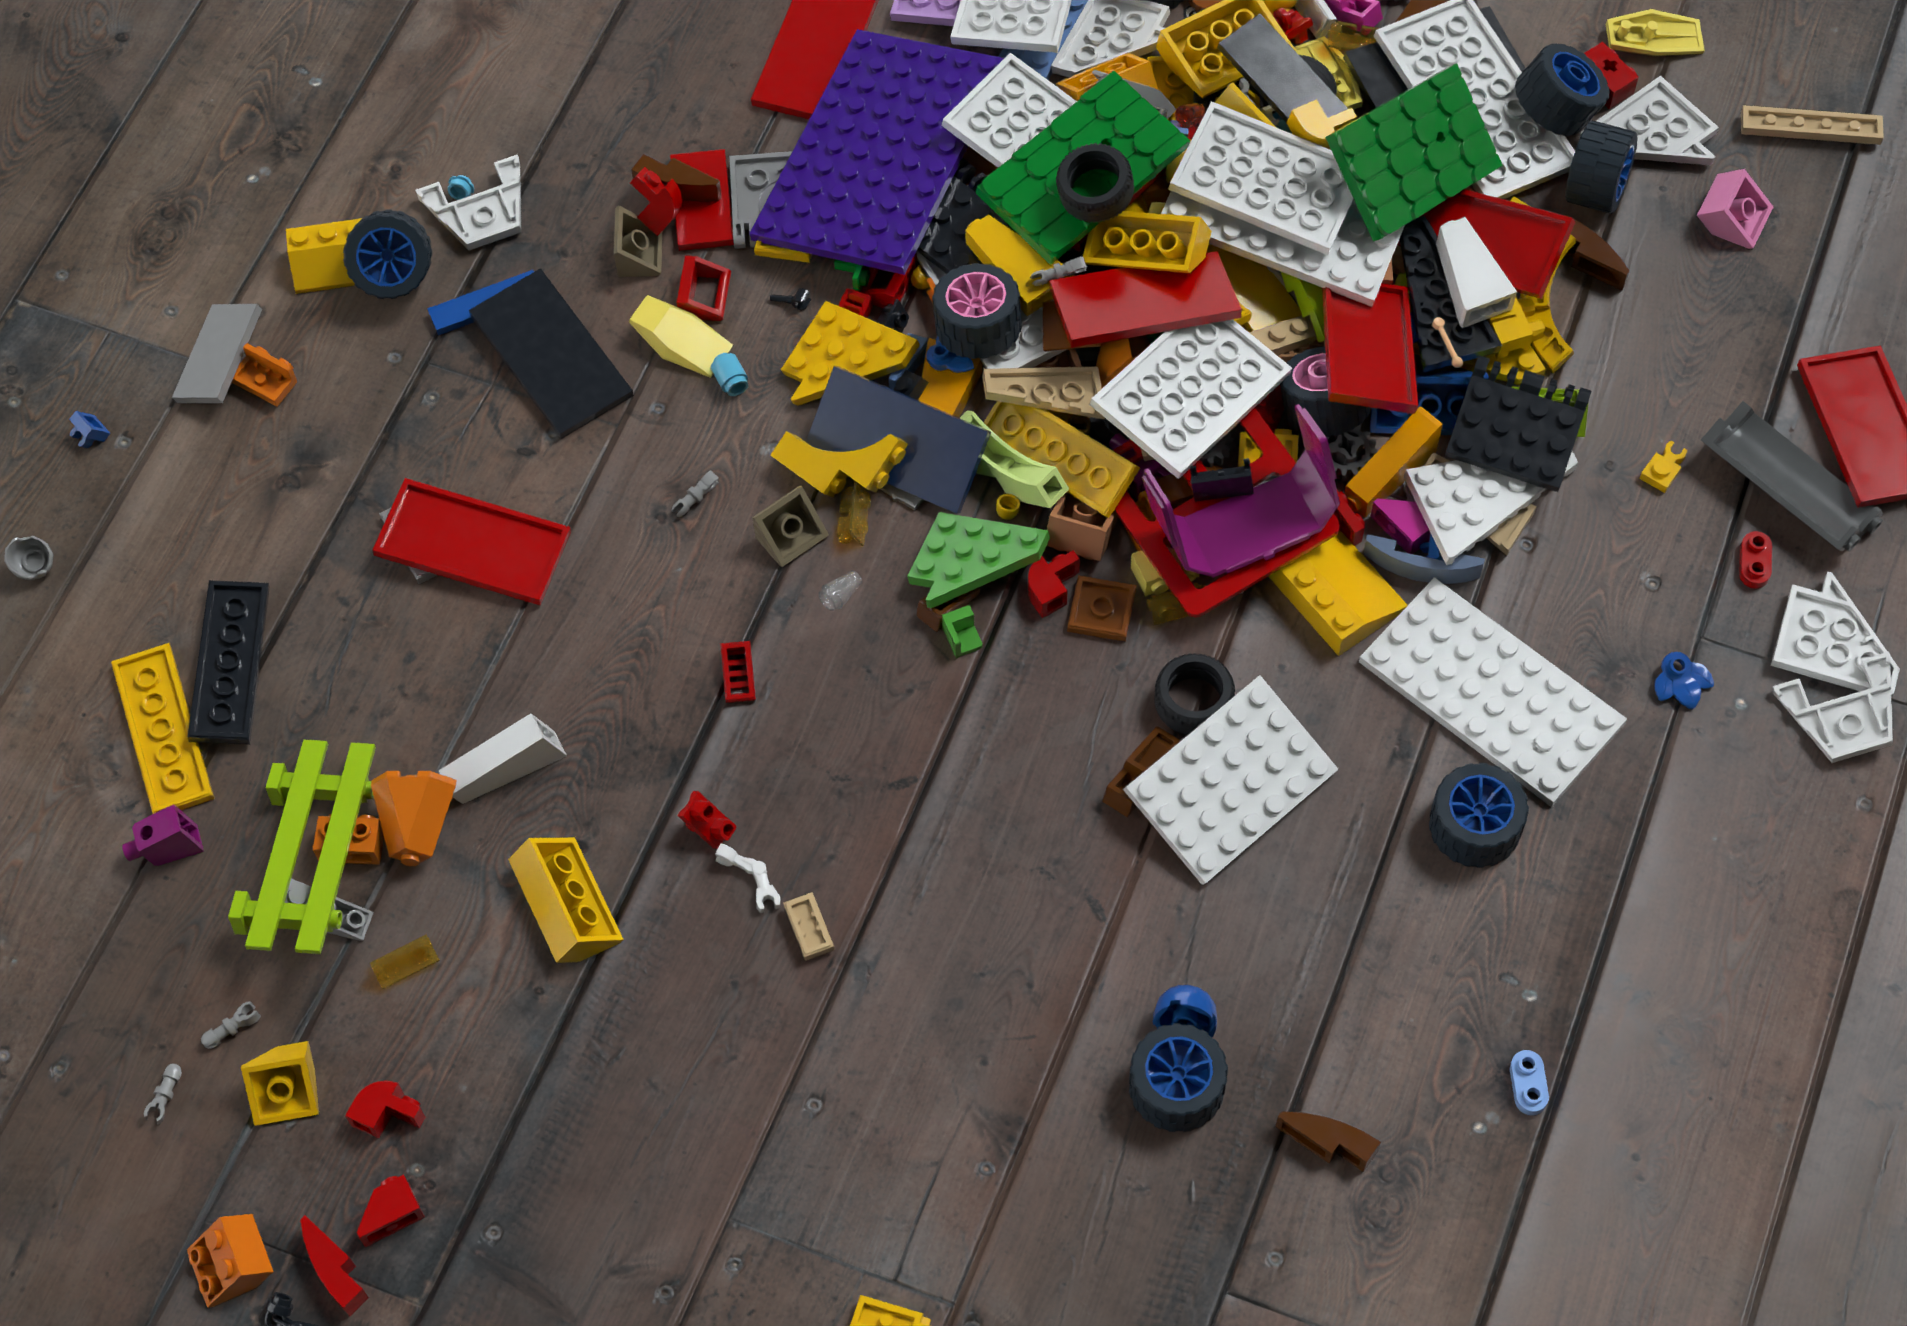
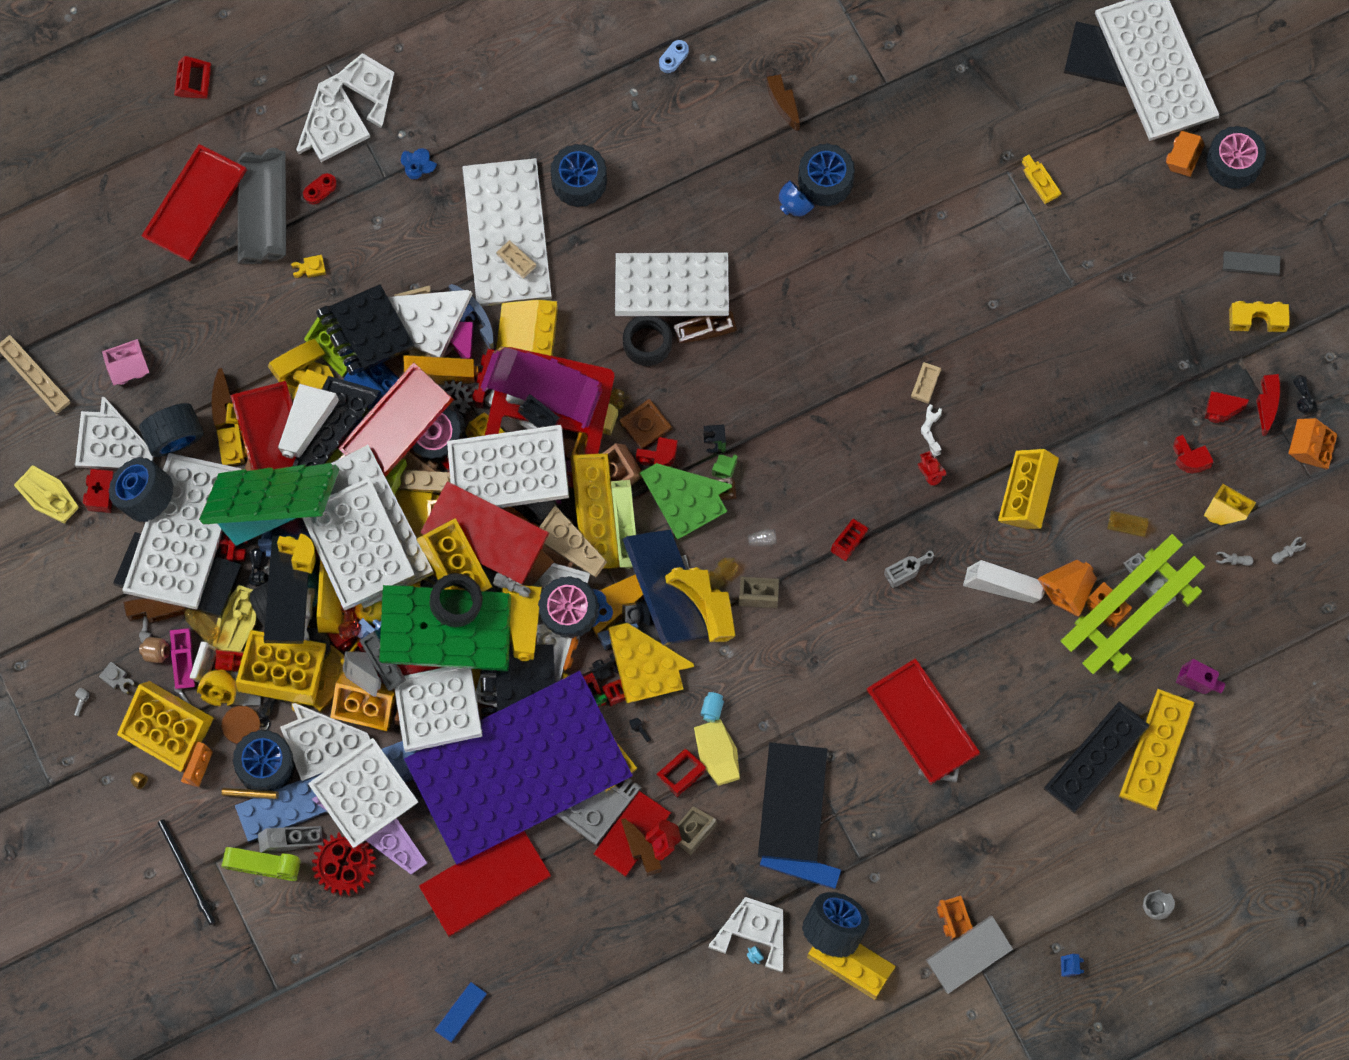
camera: 140 degrees left, 10 degrees up
(637, 687) = (898, 572): none -> light grey piece
(696, 493) = (777, 655): light grey piece -> none
(997, 644) = (716, 435): none -> black hinge
(1007, 506) = (637, 513): yellow hinge -> none
(1438, 324) = (349, 408): light nougat hinge -> none
(1442, 652) = (516, 259): none -> tan plate
(1559, 341) = (295, 359): none -> yellow slope

